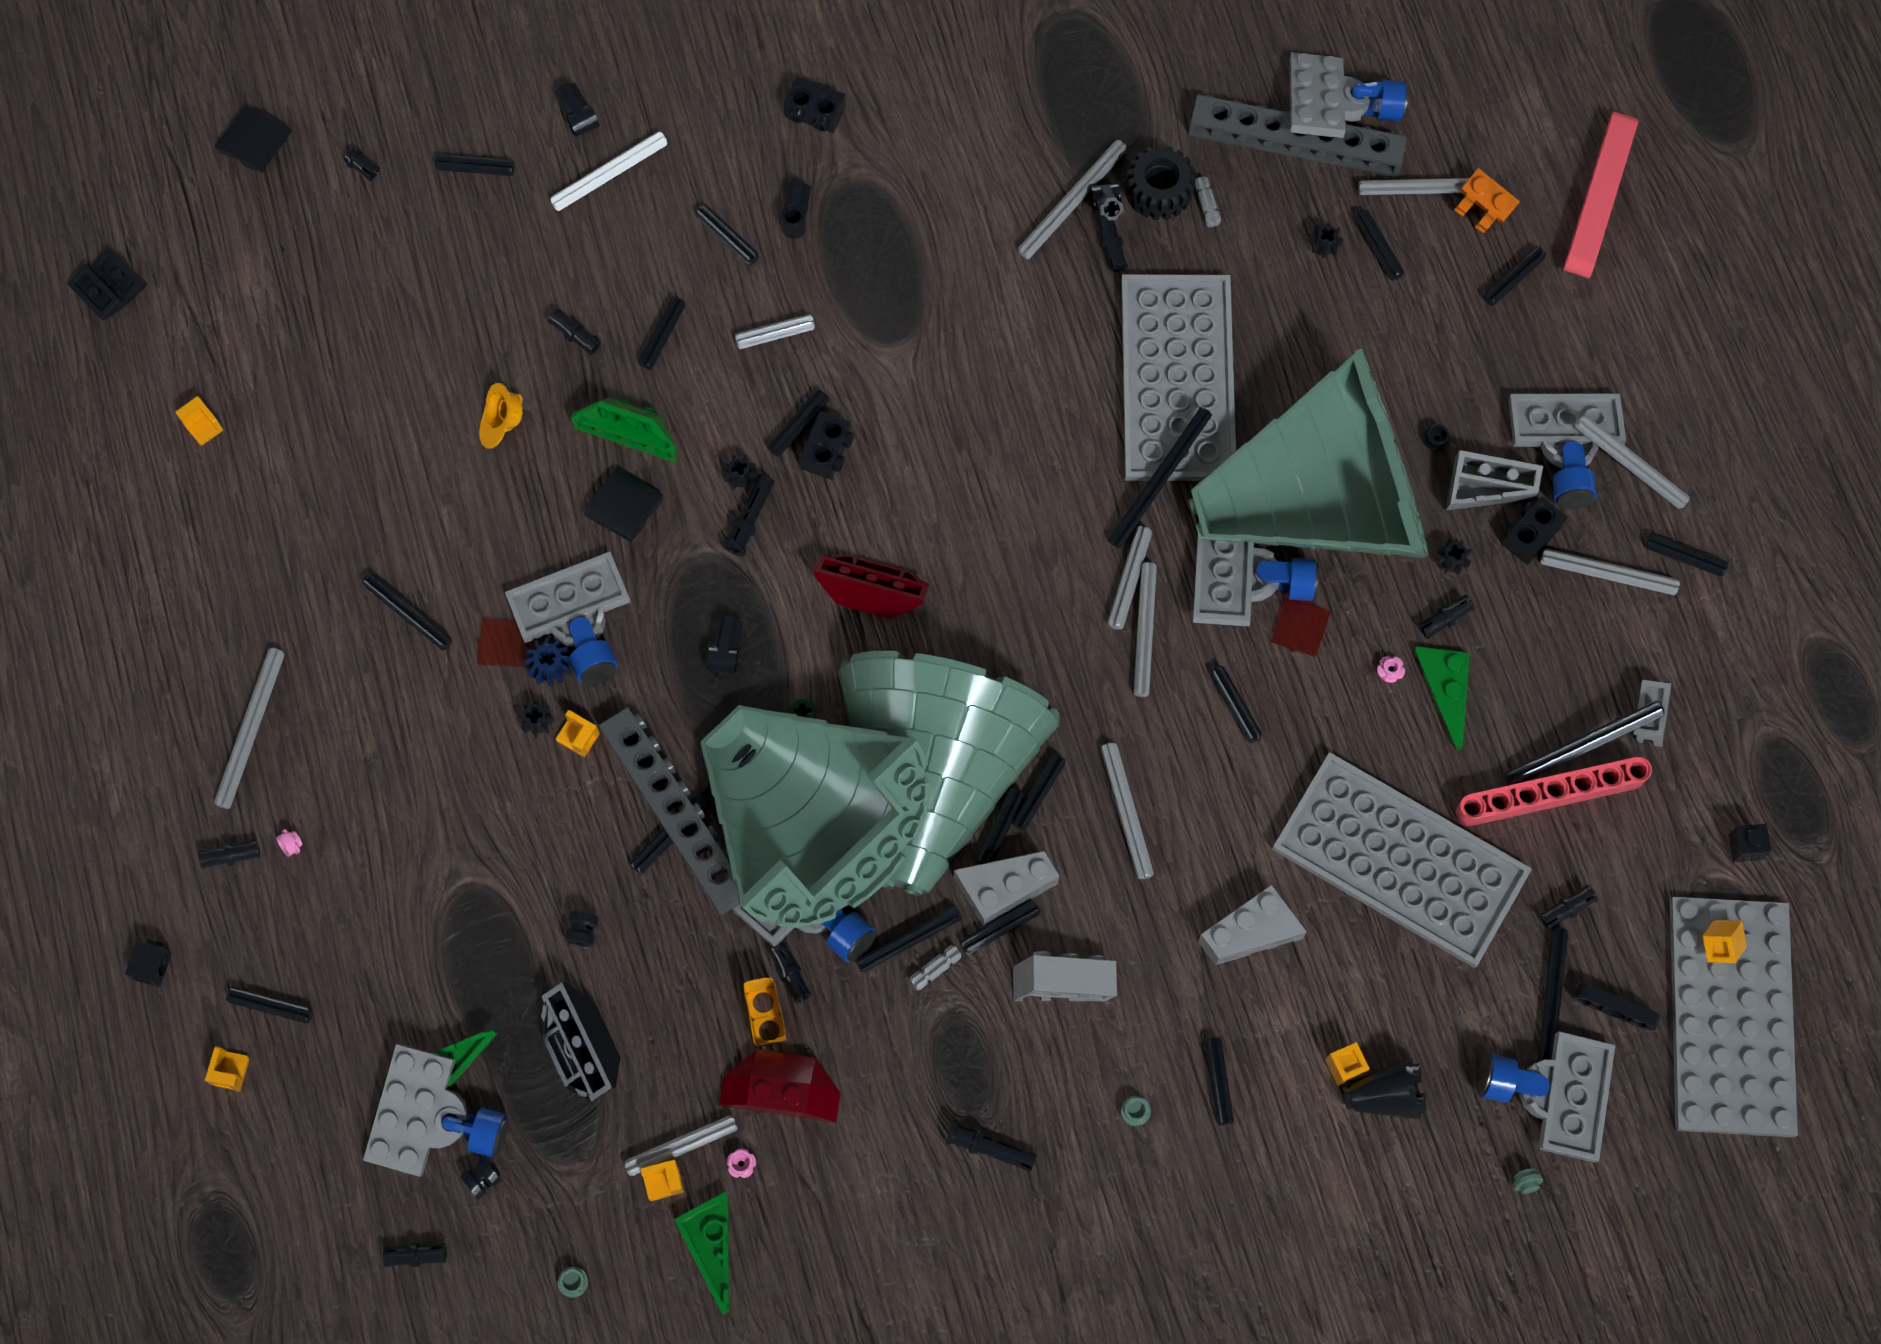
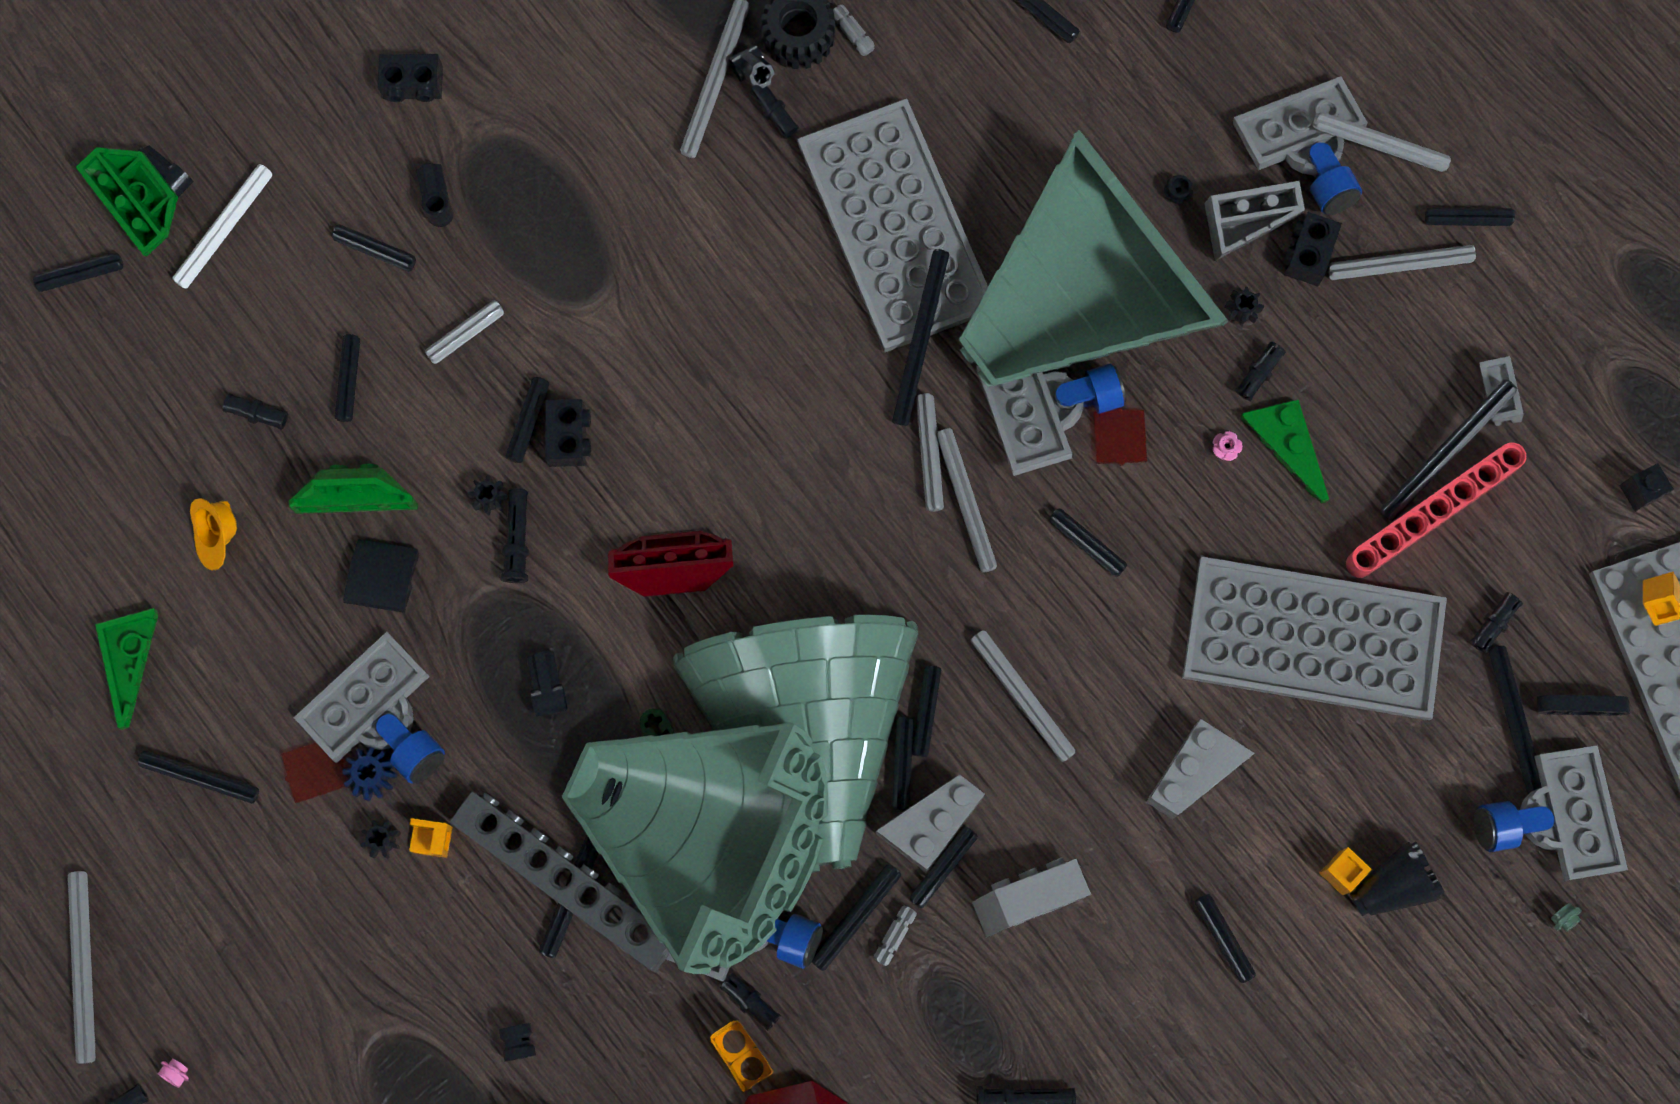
camera: 20 degrees left, 5 degrees up
(387, 487) = (124, 653): none -> green wing
(545, 116) = (132, 194): none -> green wedge
(1135, 1111) = (1154, 1002): sand green plate -> none
(1325, 240) = (988, 19): black gear -> none

